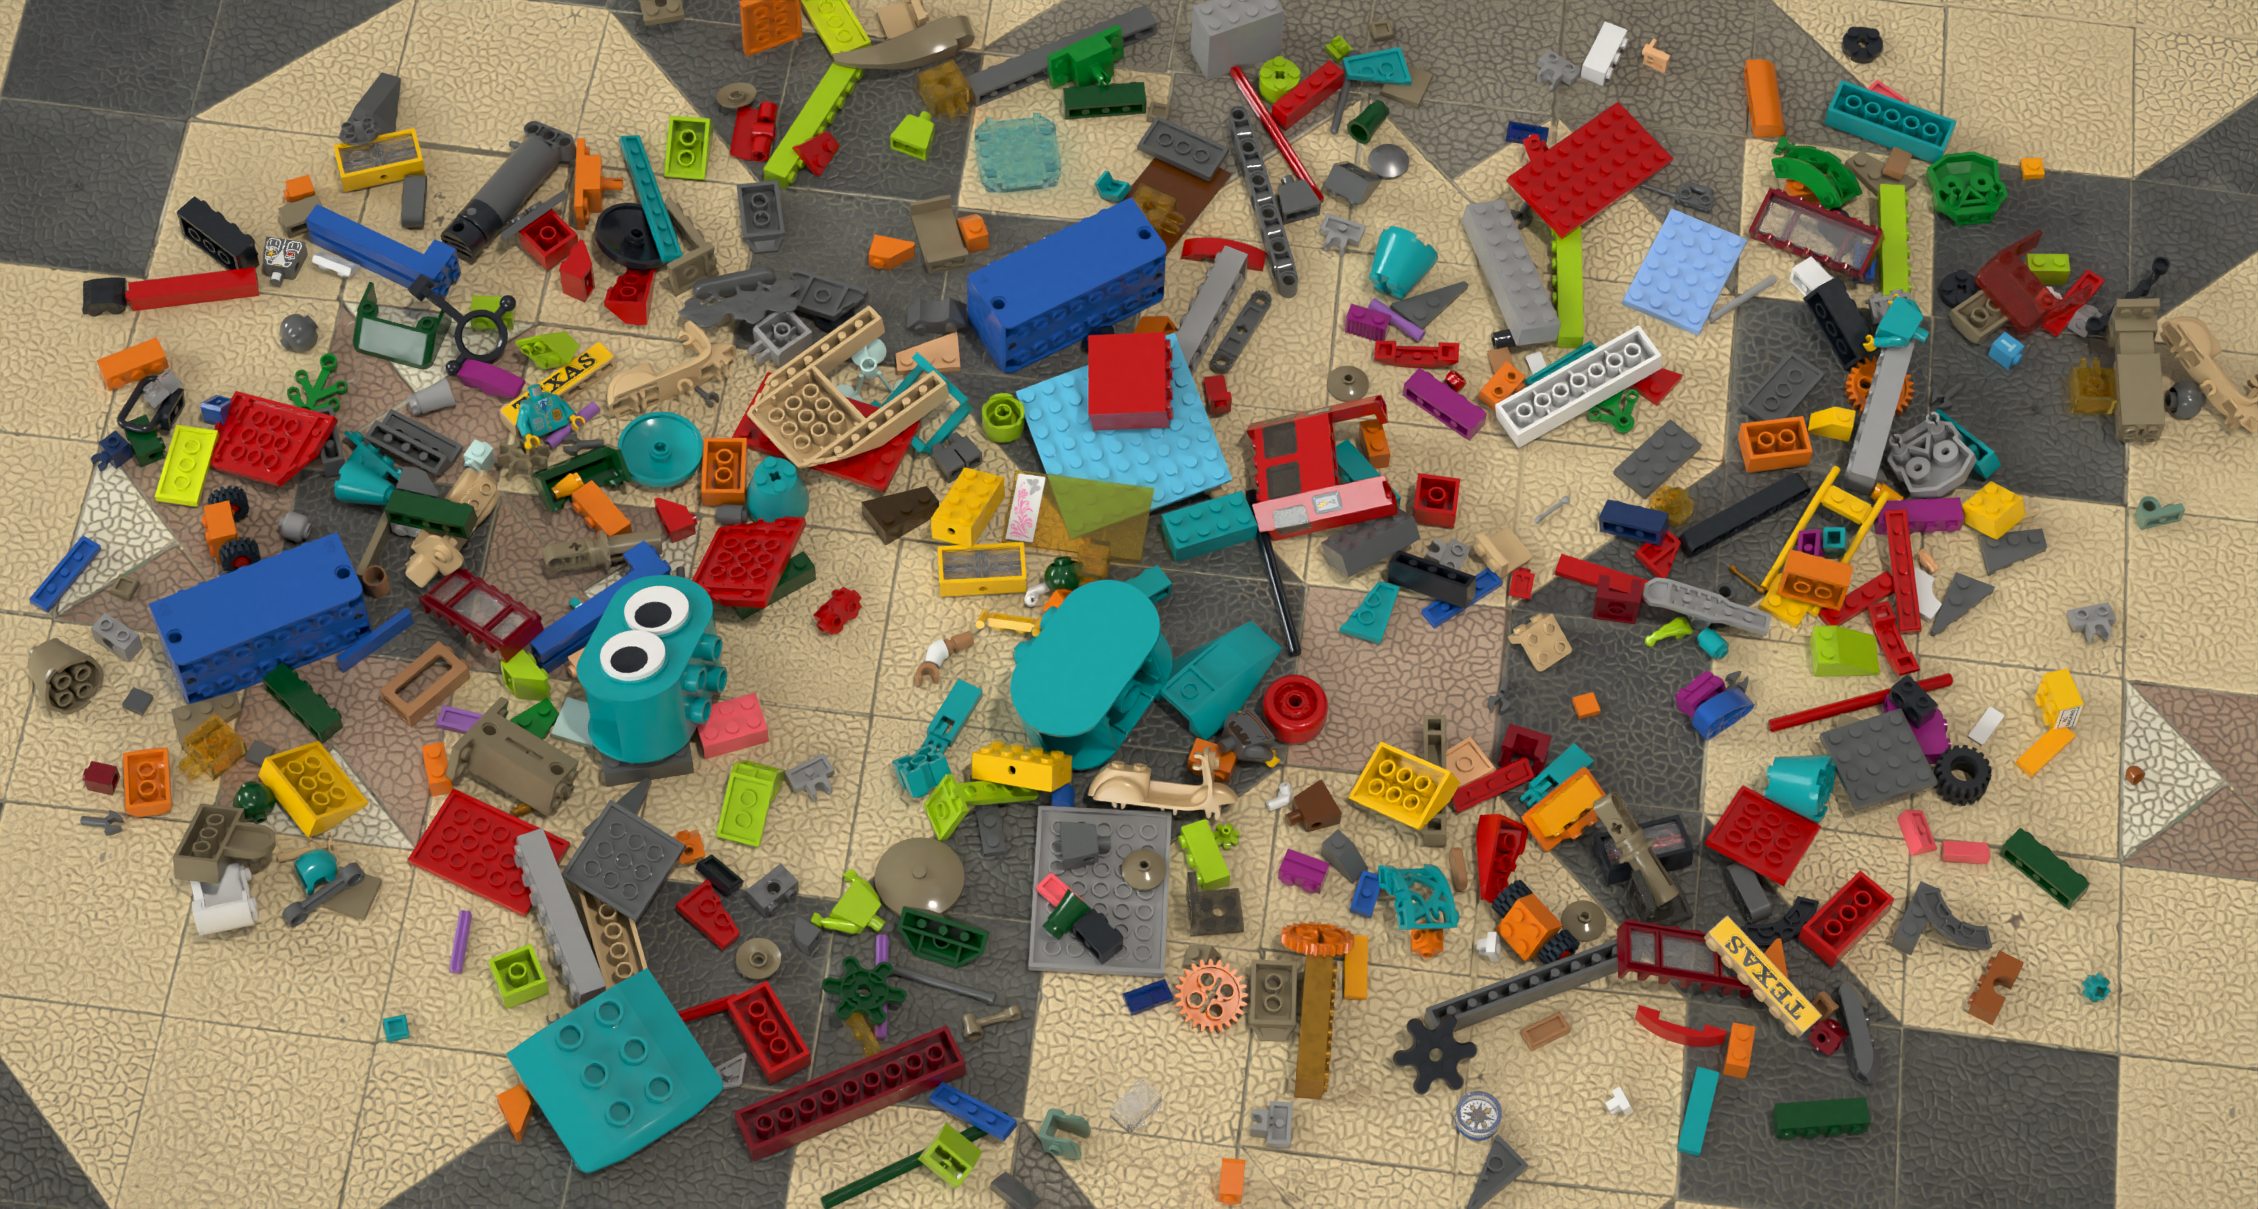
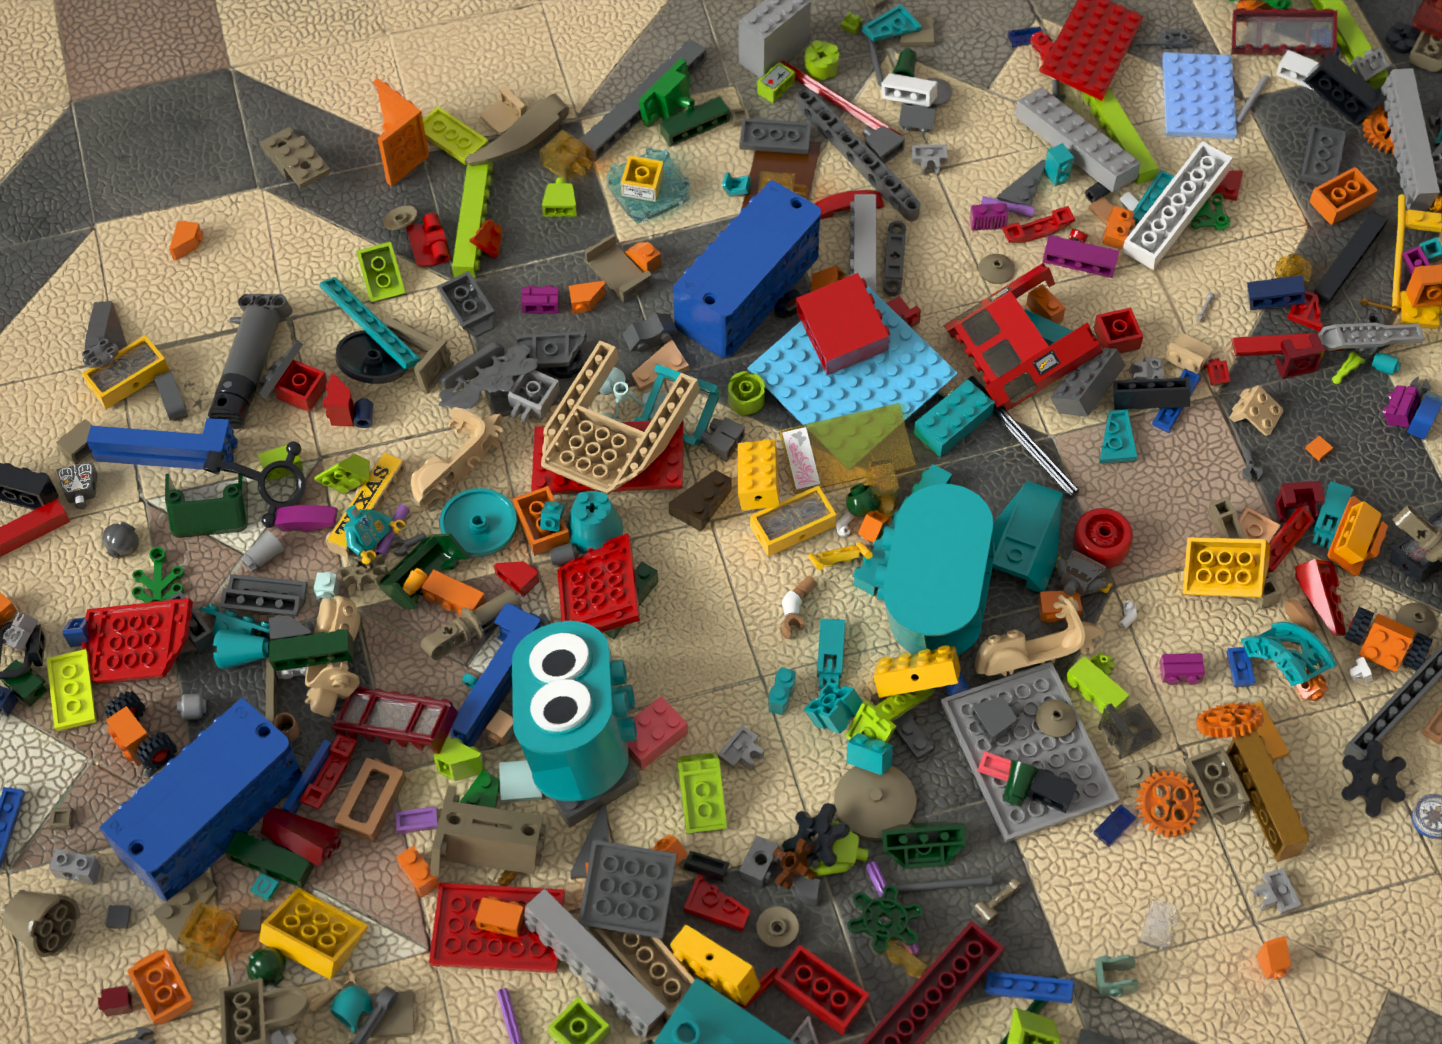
camera: 20 degrees left, 0 degrees up
(287, 727) = (264, 887): none -> teal tile
(298, 189) = (66, 420): orange brick -> none
(327, 262) = (121, 471): white plate -> none
(342, 691) = (301, 835): none -> dark red slope
(400, 643) = (331, 772): none -> red slope
(493, 841) = (500, 916): none -> orange brick
(503, 37) = (185, 239): none -> orange slope
(590, 184) = (315, 328): orange brick -> none
(597, 292) = (363, 413): none -> dark blue brick
(632, 296) = (392, 406): red wedge -> none
(674, 967) = (715, 965): none -> yellow brick
(708, 396) = (499, 462): dark grey hand -> none
(732, 469) = (551, 515): none -> teal bracket
(801, 903) = (794, 863): none -> reddish brown pin
(835, 899) = (827, 834): none -> black plate
(838, 610) = (692, 600): red brick -> none
(840, 238) = (540, 299): none -> magenta brick
(882, 734) = (782, 691): none -> teal brick
(934, 829) = (869, 754): none -> teal brick
(1009, 145) = (642, 178): none -> yellow brick
(1216, 88) = (775, 82): none -> lime brick
(1307, 95) = (849, 63): red brick -> none
(1314, 808) = (1161, 613): reddish brown torso -> none
(1343, 856) = (1206, 641): dark grey slope -> none
(1356, 149) = (909, 90): none -> white brick
(1400, 262) = (991, 160): teal cone -> none
(1474, 293) = (1058, 164): none -> teal brick
(1657, 459) = (1260, 240): dark grey plate -> none
(1832, 423) = (1375, 164): yellow slope -> none
(1898, 325) = (1400, 70): teal torso -> none

